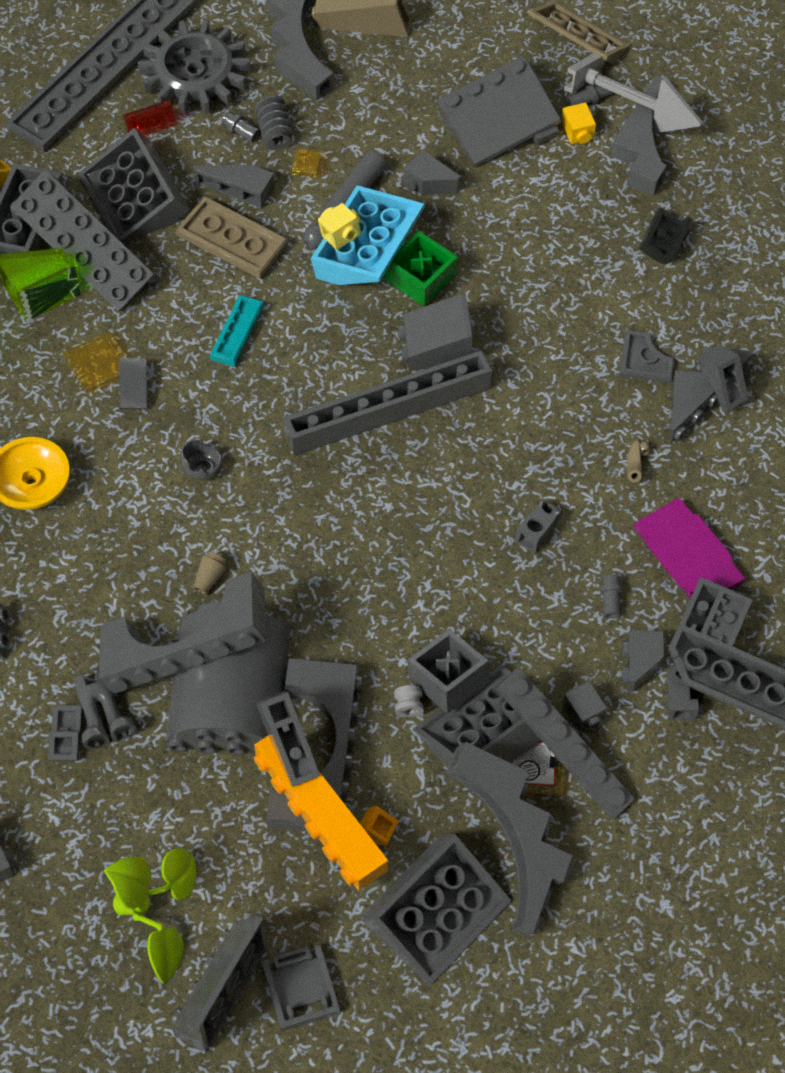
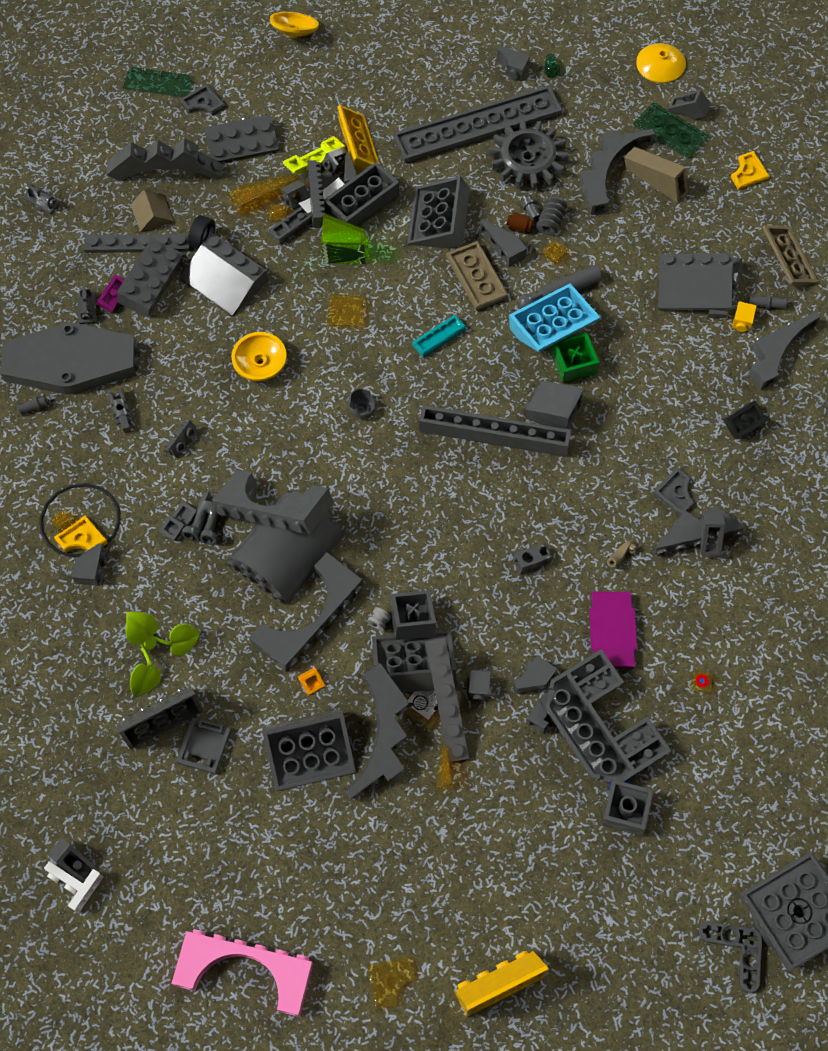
camera: 35 degrees right, 5 degrees up
(70, 226) = (383, 230): dark grey bracket -> none
(132, 383) = (355, 334): dark grey slope -> none
(151, 118) = (478, 175): clear red plate -> none
(209, 572) = (320, 474): dark tan cone -> none
(240, 149) = (520, 222): none -> reddish brown brick
(288, 737) = (284, 598): dark grey slope -> none
(327, 820) = (279, 651): light orange brick -> none
(339, 225) = (538, 303): light yellow brick -> none
(430, 176) = (623, 301): dark grey slope -> none
(611, 594) = (544, 629): dark grey pin -> none
(620, 834) = (444, 778): none -> clear yellow slope
(669, 108) = (806, 338): light grey piece -> none

